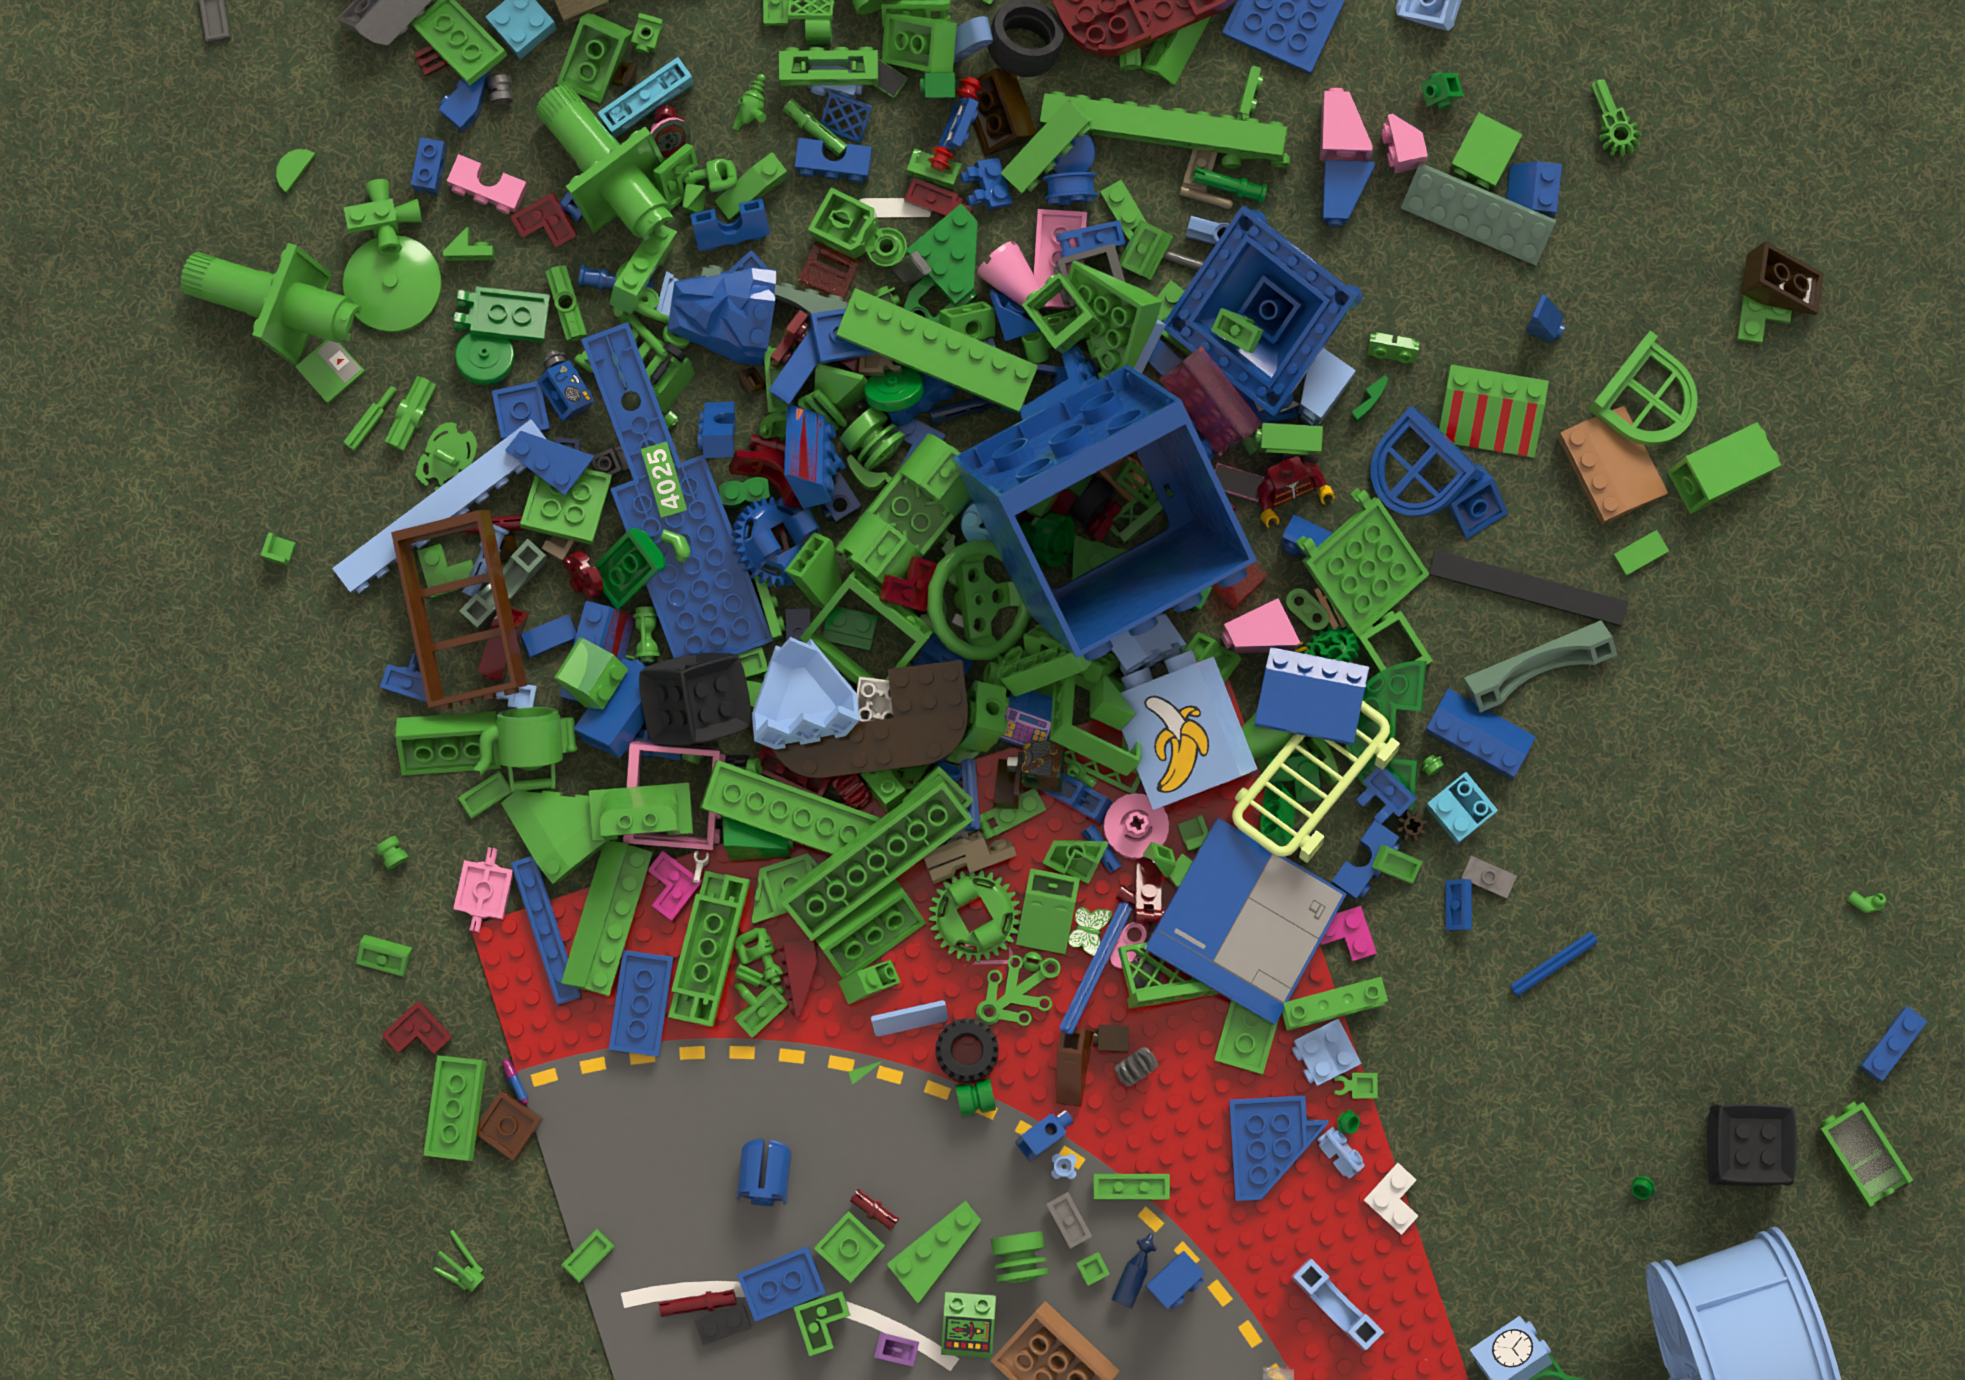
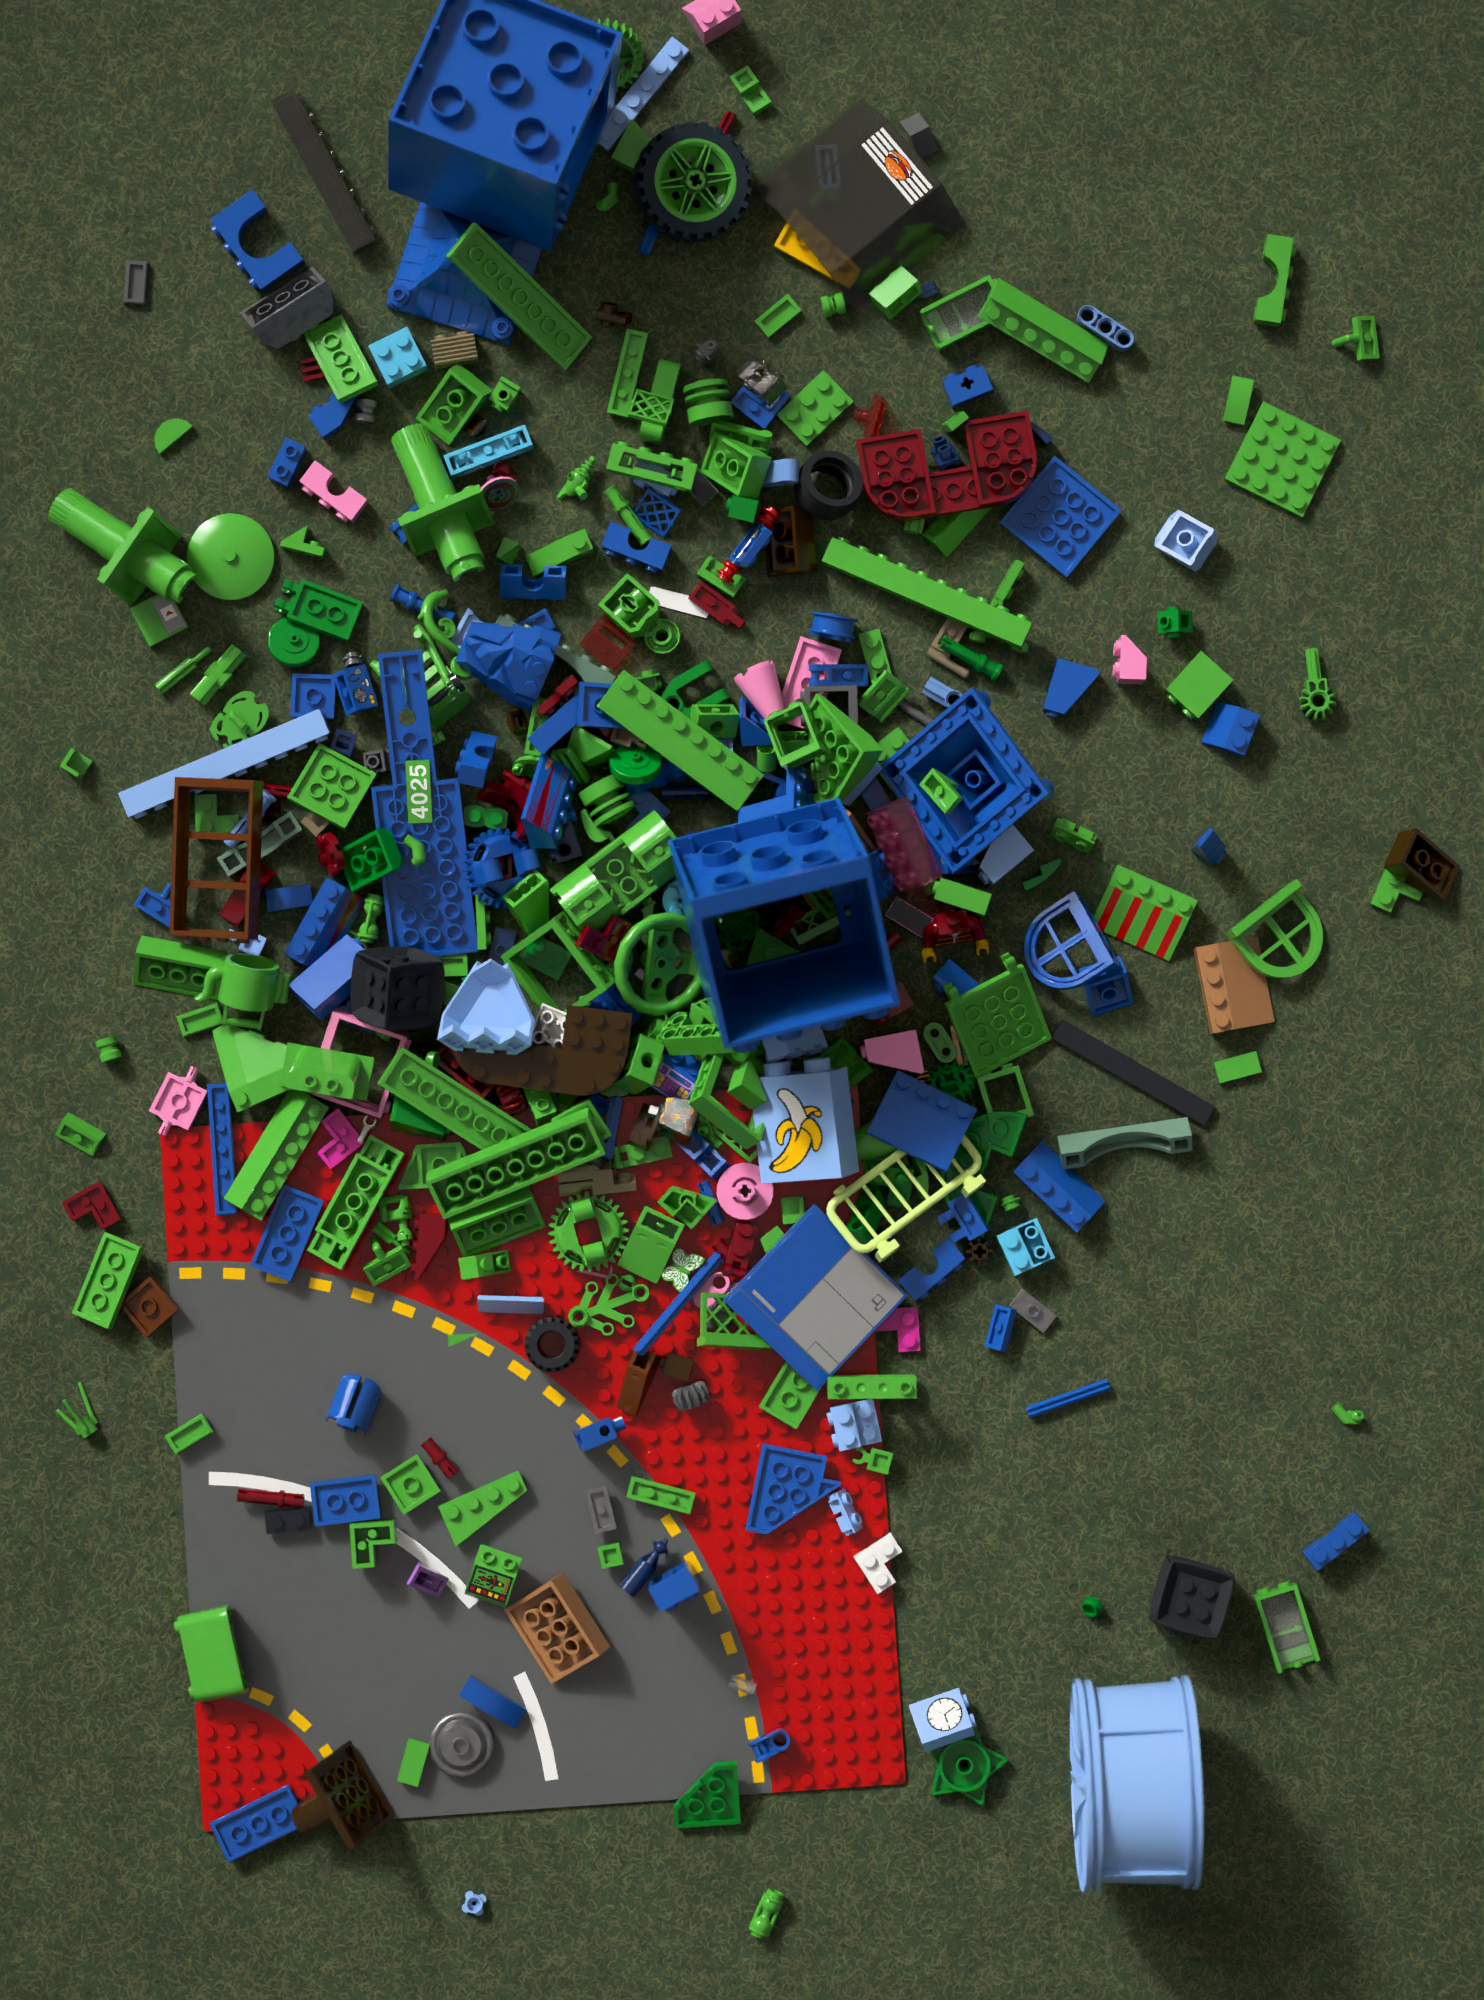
camera: 10 degrees right, 5 degrees up
(382, 216) = (236, 497): bright green brick -> none
(514, 1081) = (164, 1270): piece -> none
(547, 214) = (380, 532): dark red plate -> none
(549, 460) = (326, 749): blue wing -> none
(562, 289) = (375, 600): bright green piece -> none
(591, 674) = (314, 943): bright green slope -> none
(636, 275) = (437, 611): bright green arch -> none
(671, 171) = (492, 524): bright green plate -> none
(714, 171) = (530, 531): bright green piece -> none
(911, 268) = (678, 661): flat silver tile -> none
(950, 253) = (713, 656): green plate -> none
(975, 1097) = (548, 1386): green wheel -> none
(992, 183) = (767, 603): blue plate -> none
(1019, 1256) = (550, 1530): bright green wheel -> none
(1046, 146) = (822, 584): bright green brick -> none
(1058, 1161) = (612, 1468): light blue plate -> none
(1078, 158) = (841, 593): blue tile -> none
(1162, 857) = (759, 1225): bright green slope -> none
(1342, 129) = (1079, 635): bright pink slope -> none
(1342, 1312) = (806, 1640): light blue arch -> none
(1348, 1122) = (857, 1488): green plate -> none
(1397, 864) = (957, 1280): bright green tile -> none
(1478, 214) = (1177, 738): sand green plate -> none
(1723, 467) = (1328, 1012): bright green slope -> none

